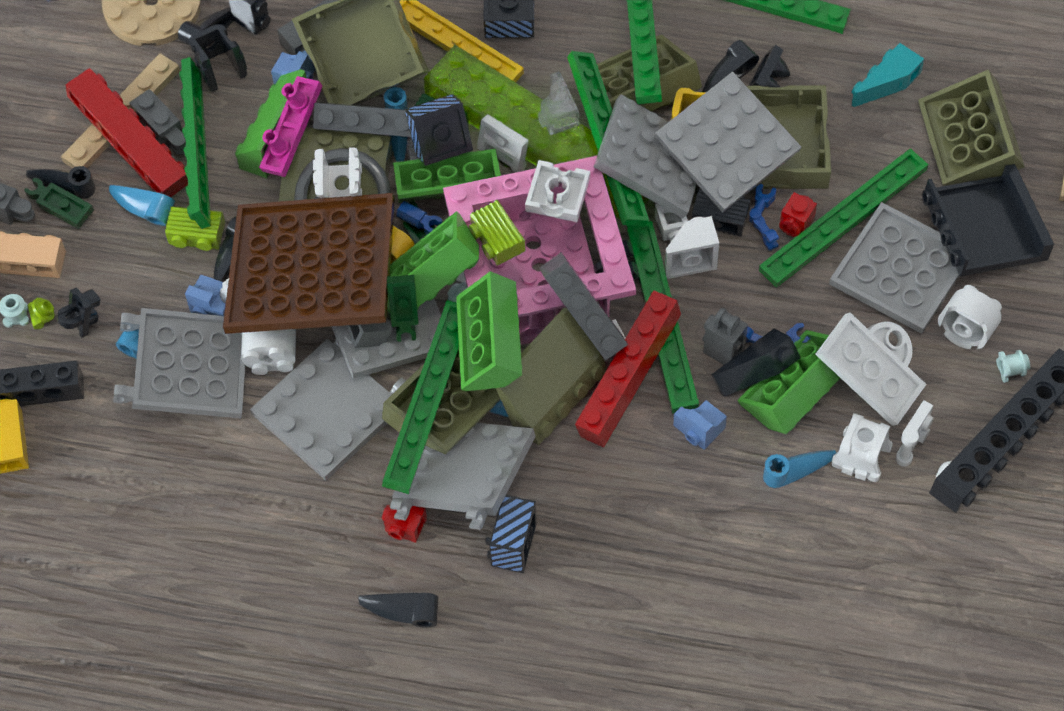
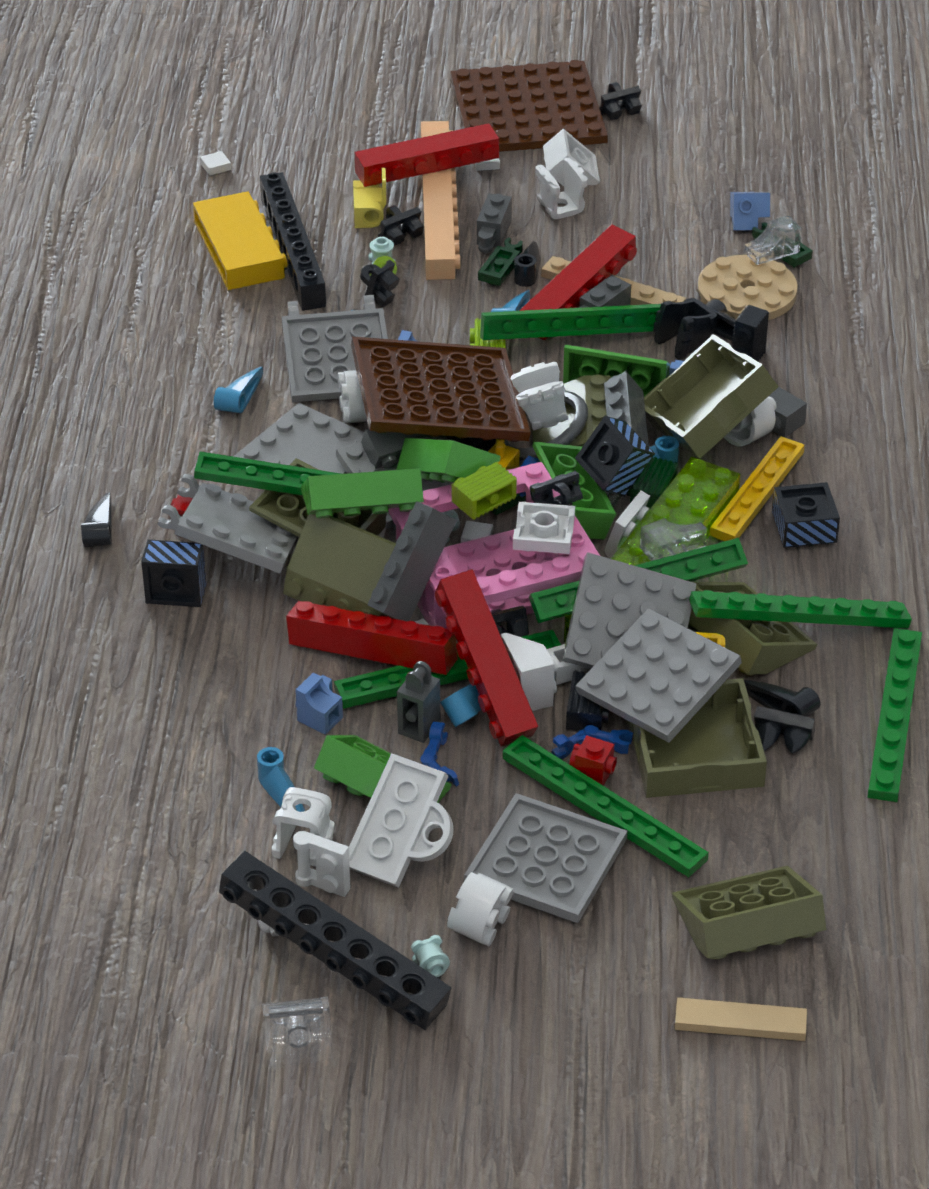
camera: 80 degrees right, 20 degrees down
(218, 464) = (238, 394): none -> dark azure piece
(291, 125) = (589, 366): dark pink plate -> none
(403, 305) = (401, 446): dark green plate -> none
(514, 172) = (565, 484): none -> black hips
(690, 269) = (486, 657): none -> red brick
(702, 303) = (462, 705): none -> dark azure piece
(757, 363) = (397, 736): black slope -> none
(892, 75) = (810, 832): teal slope -> none
(988, 223) = (615, 919): black panel -> none

